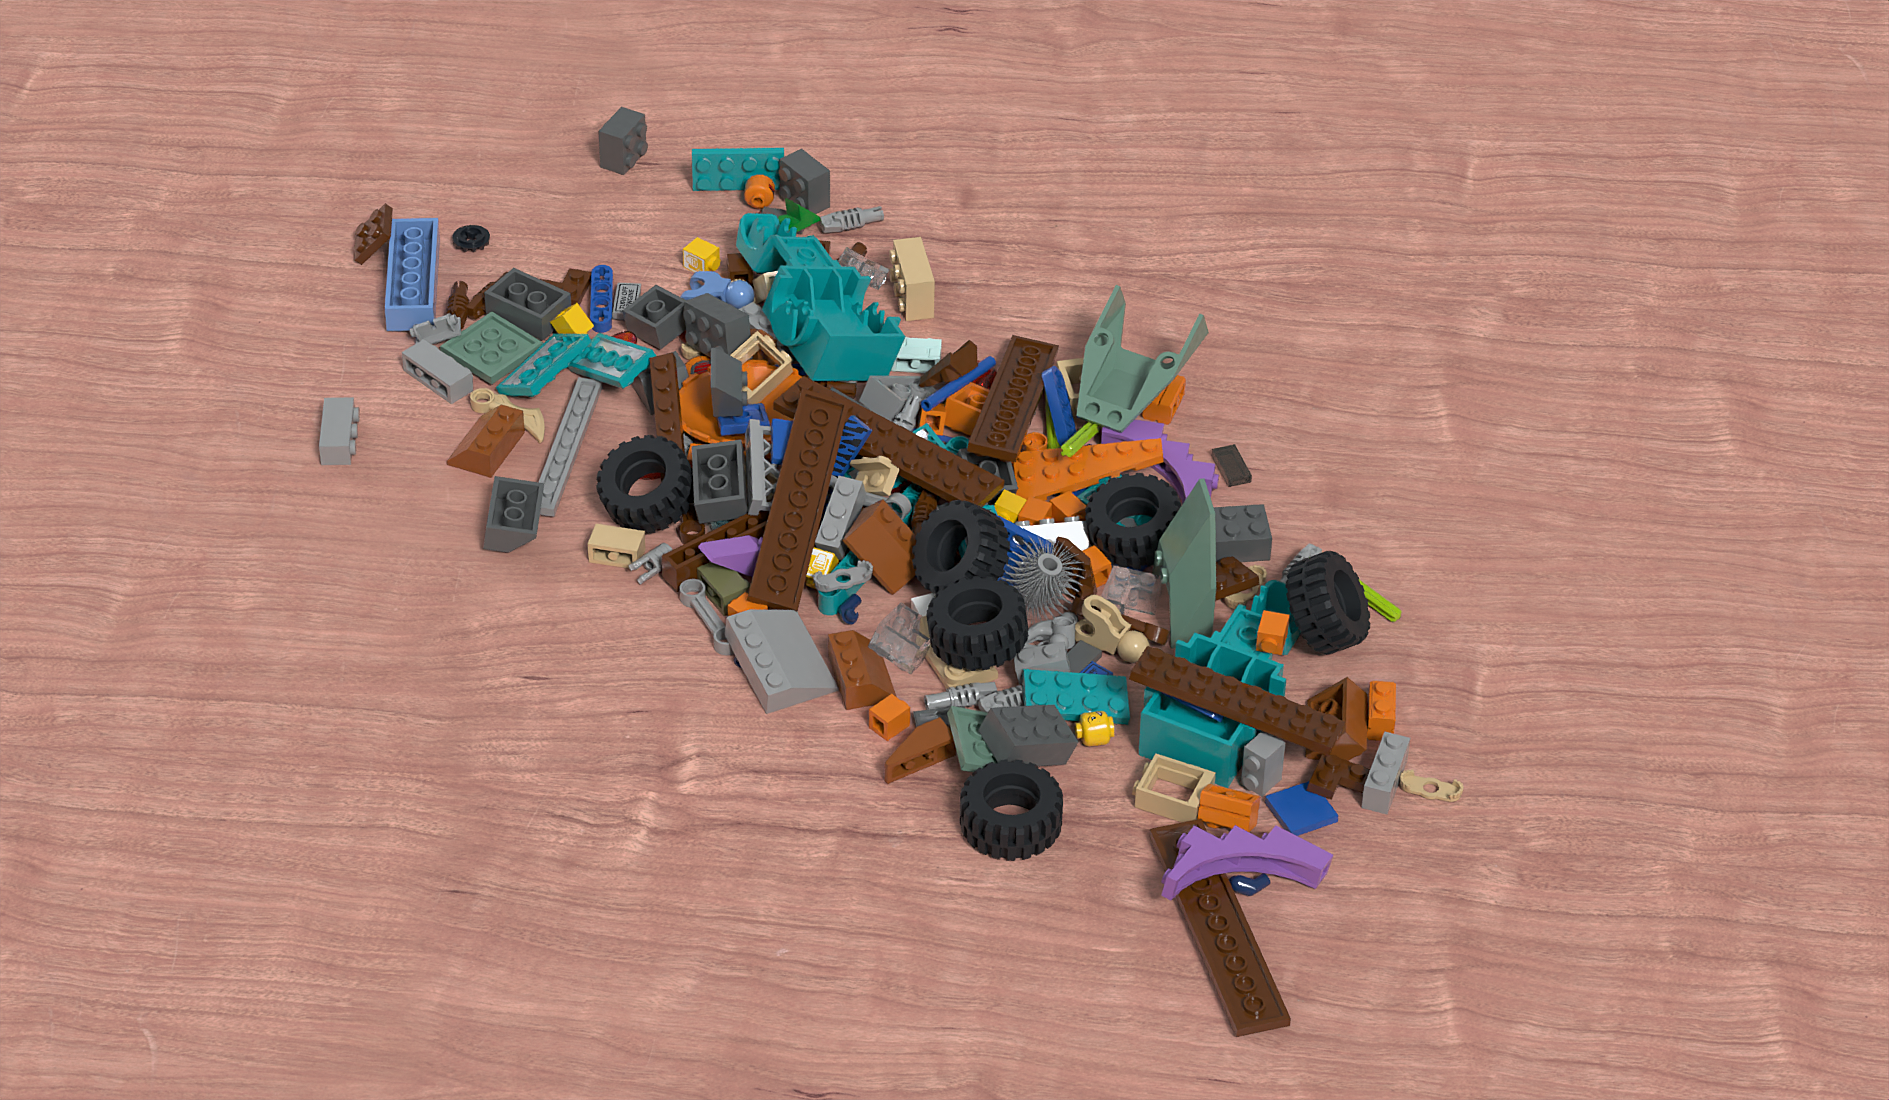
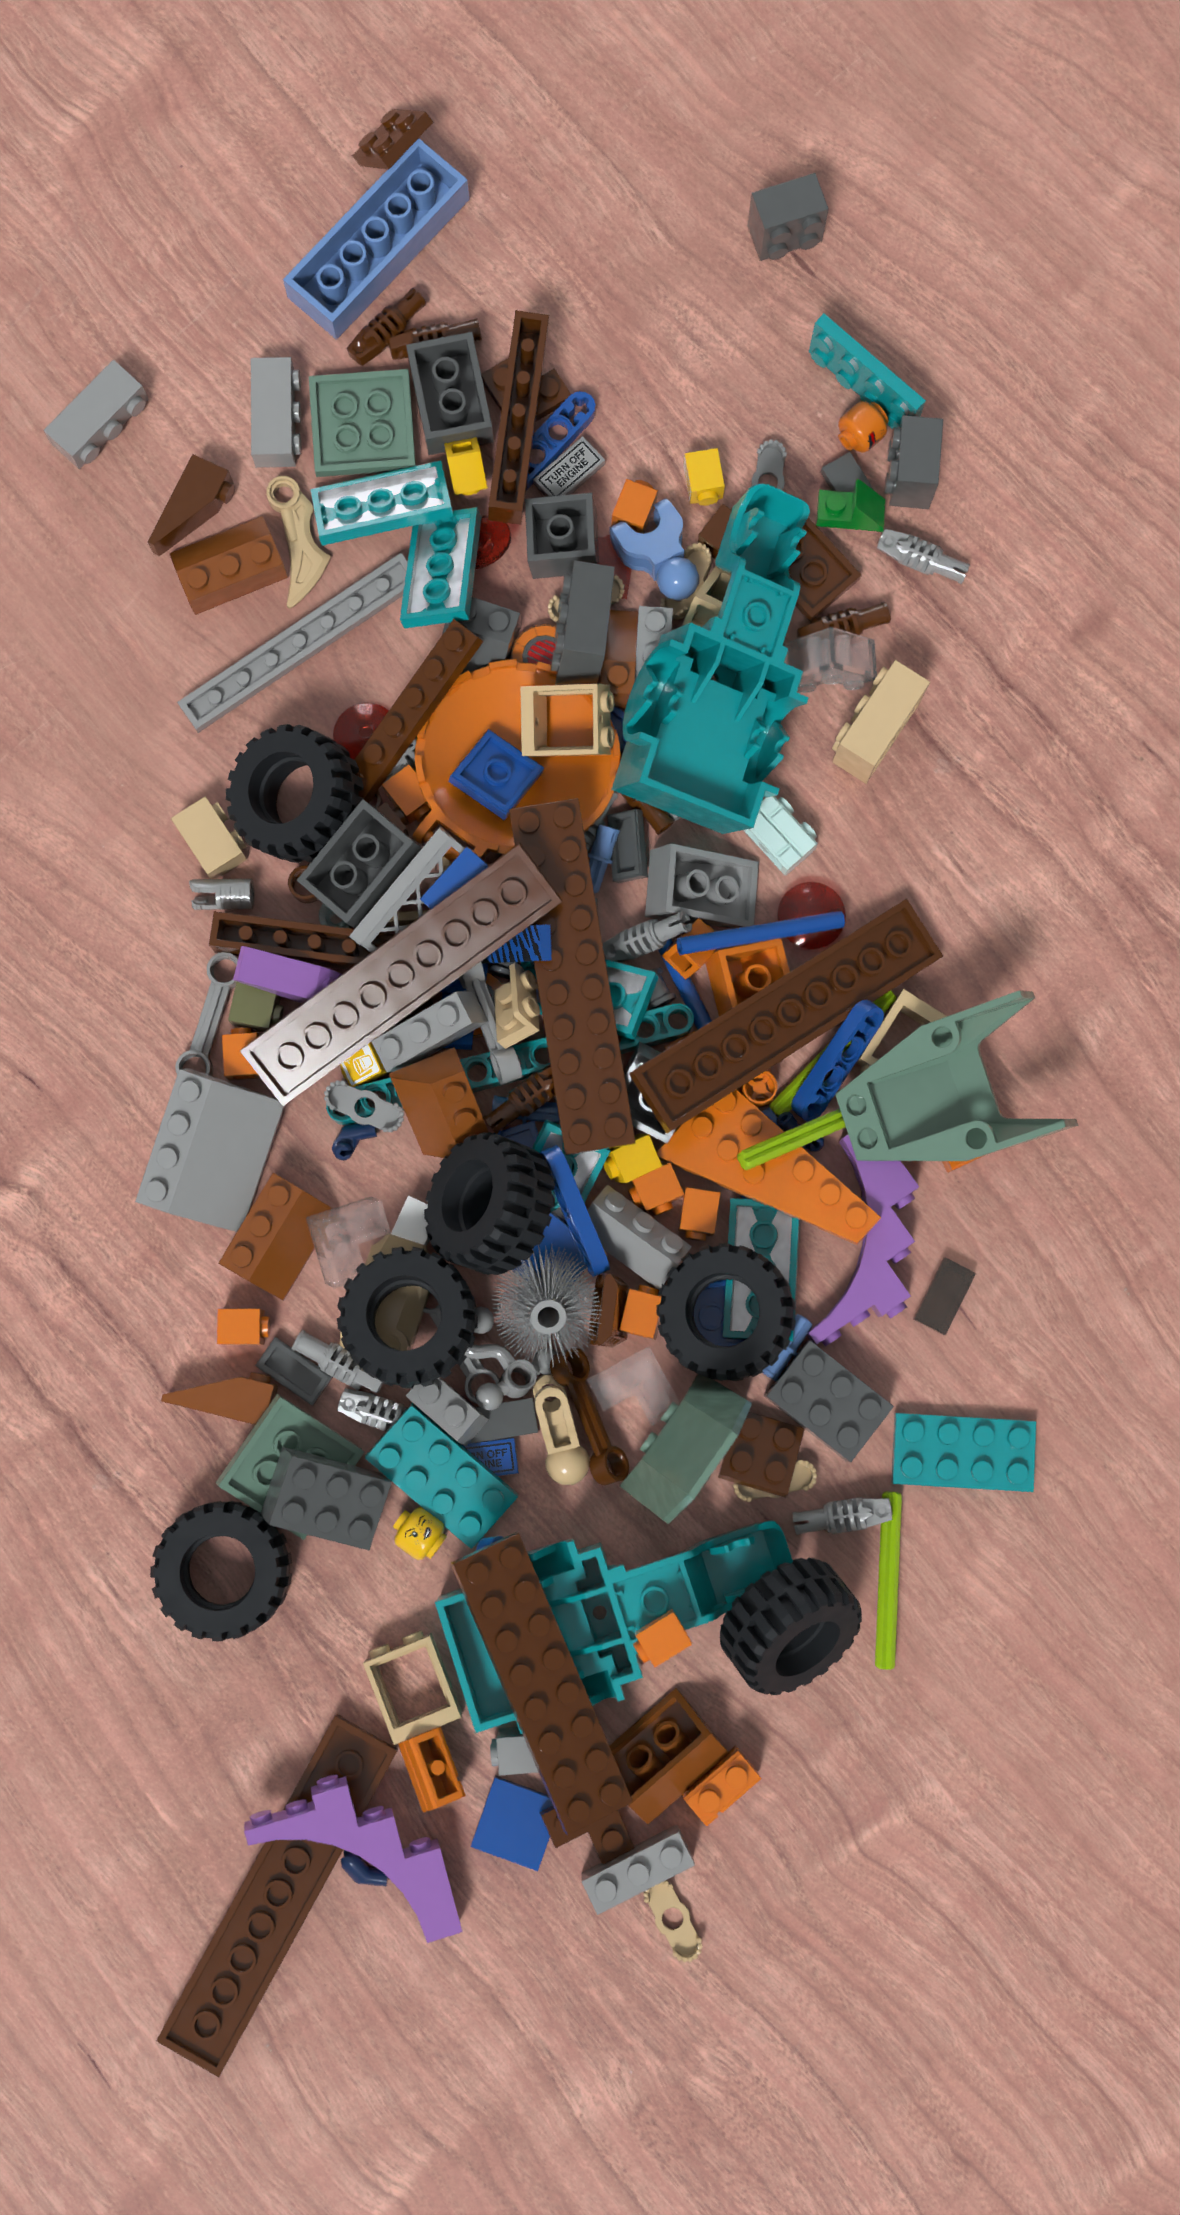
camera: 45 degrees right, 40 degrees up
(436, 427) = (193, 502): none -> reddish brown slope
(444, 328) = (324, 350): light grey hinge -> none
(471, 232) = (490, 216): black gear -> none
(513, 514) = (142, 703): dark grey slope -> none
(583, 283) = (518, 417): none -> reddish brown brick
(679, 282) = (635, 505): none -> orange brick
(726, 236) = (770, 461): none -> light grey piece
(727, 385) = (495, 731): dark grey slope -> none
(952, 366) = (774, 903): reddish brown slope -> none
(1321, 513) = (963, 1452): none -> teal piece

